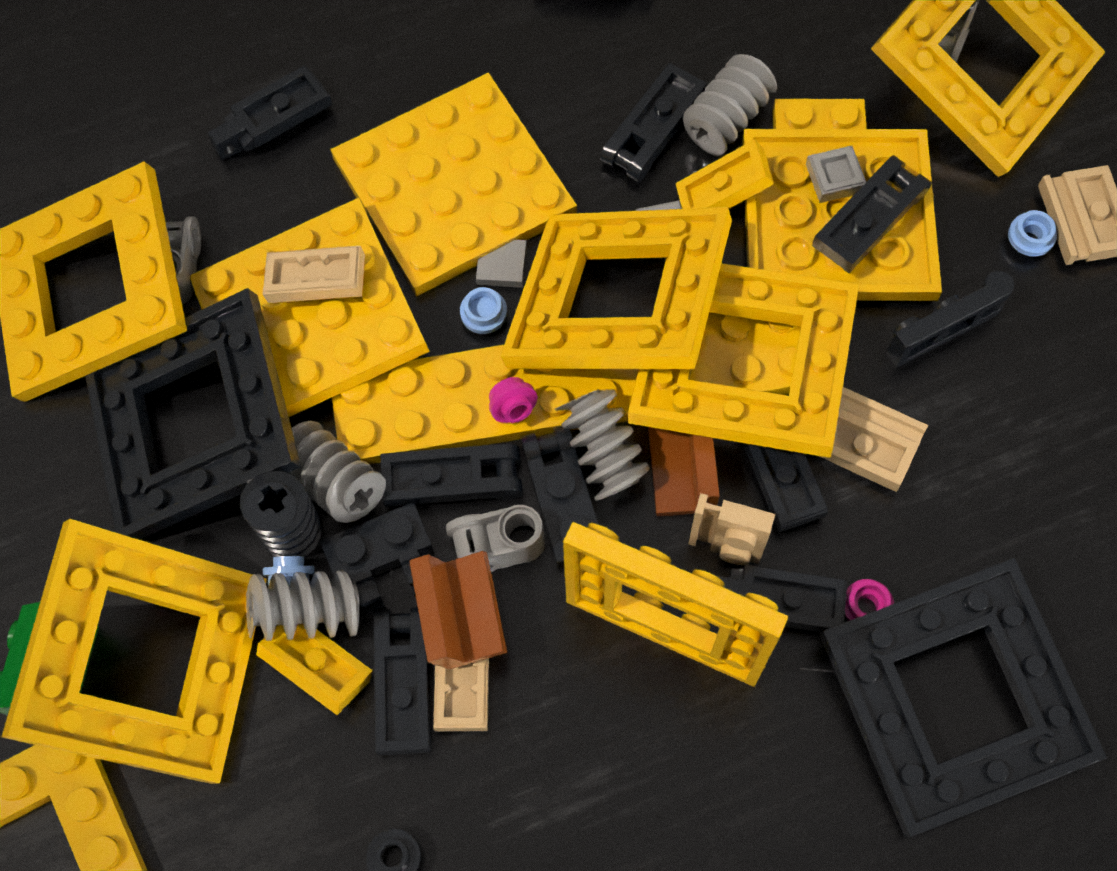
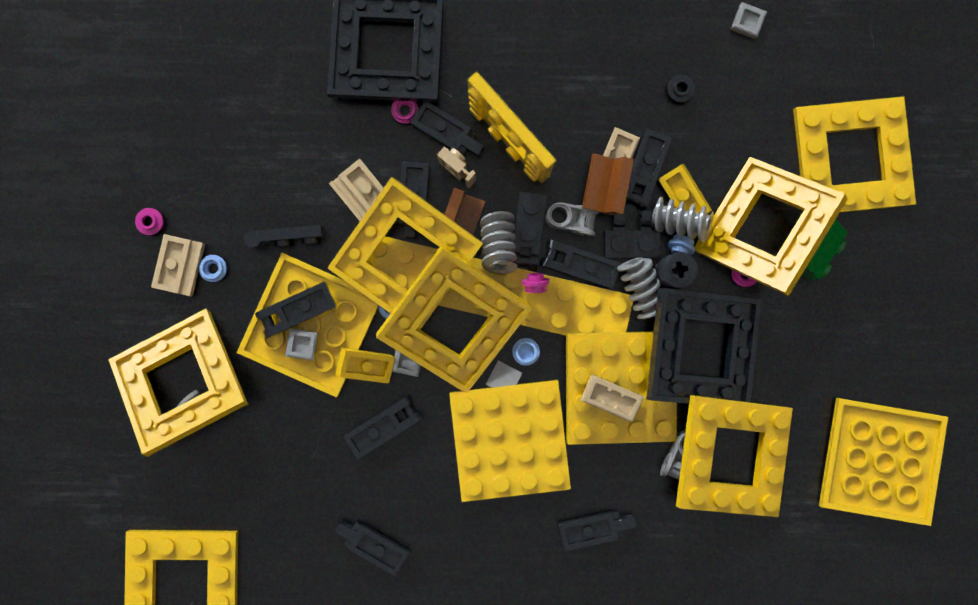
camera: 160 degrees left, 20 degrees up
(729, 103) = (338, 418): light grey piece -> none
(819, 114) = (289, 390): yellow plate -> none

